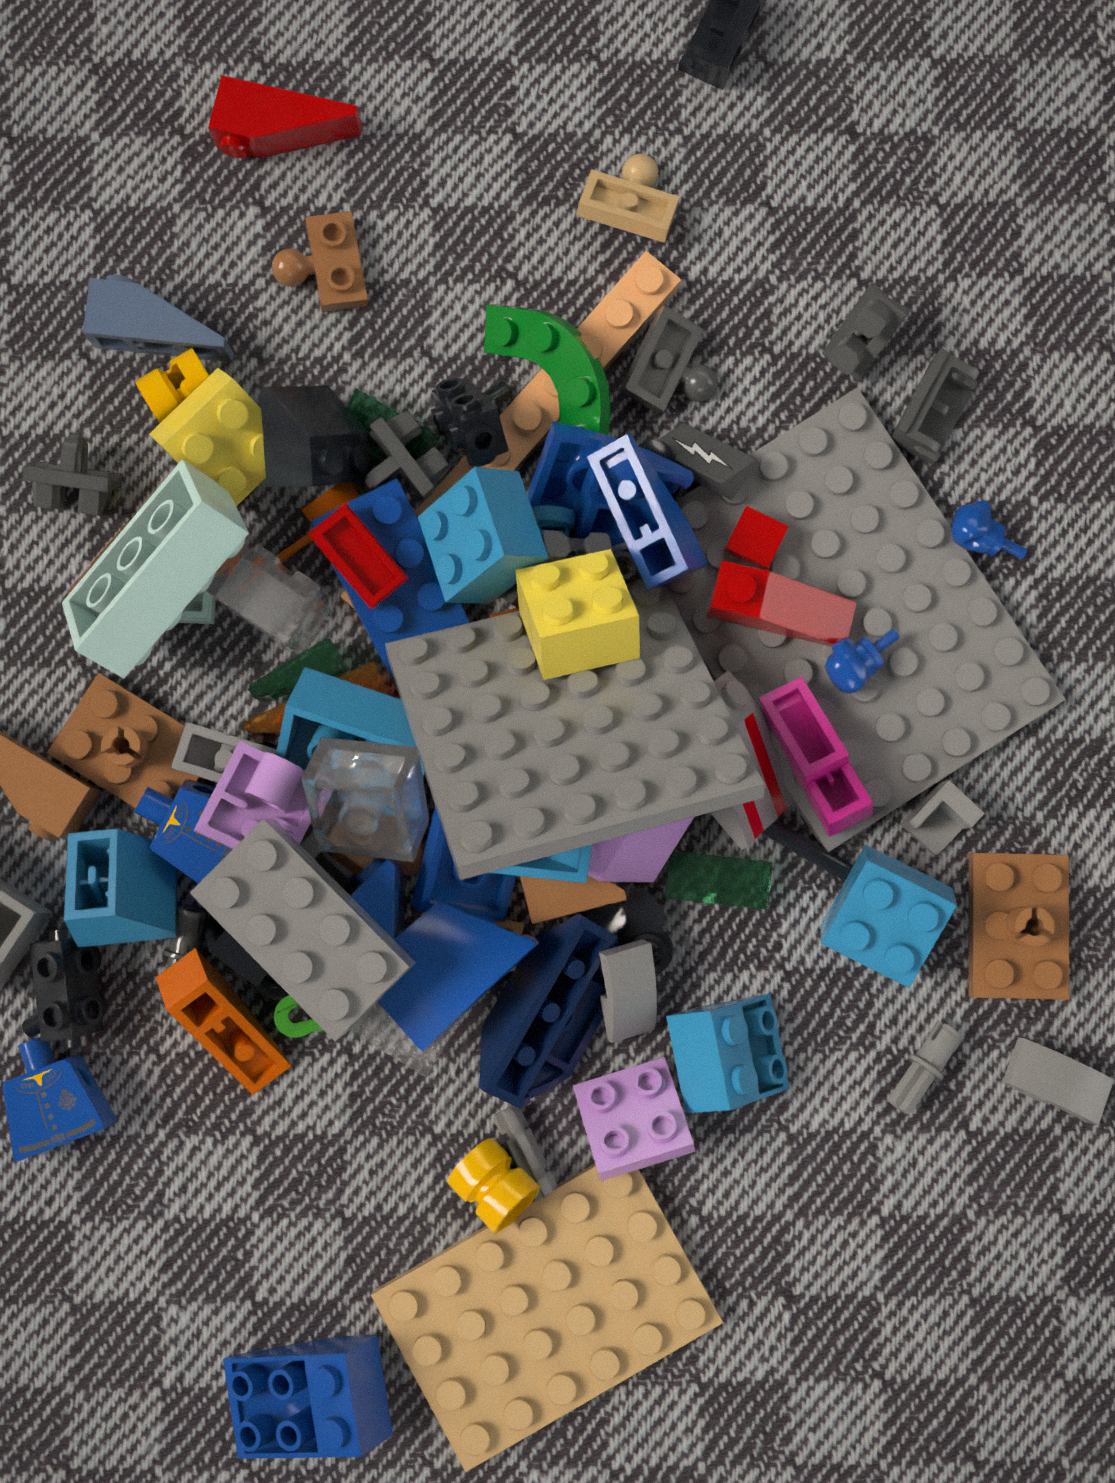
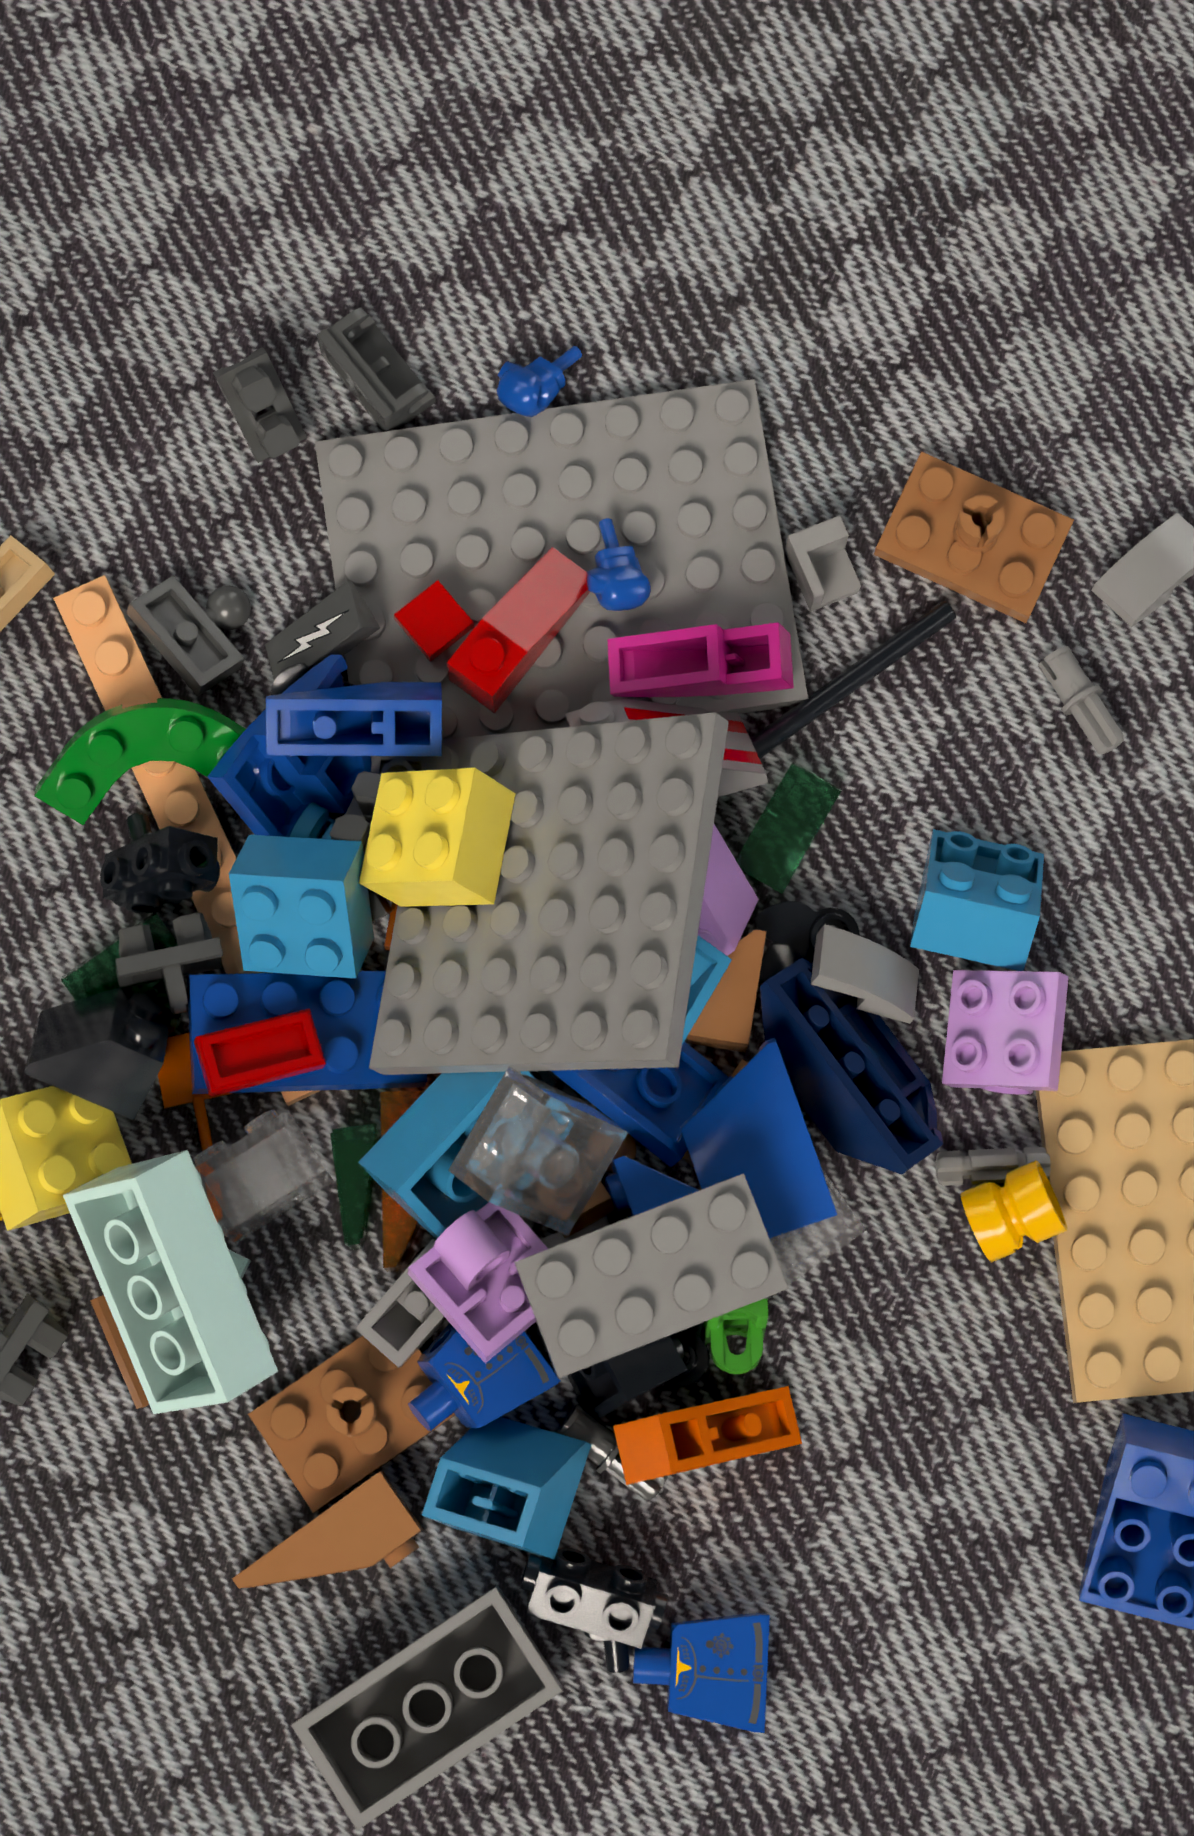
camera: 65 degrees left, 5 degrees down
(887, 916) = (904, 665): dark azure brick -> none

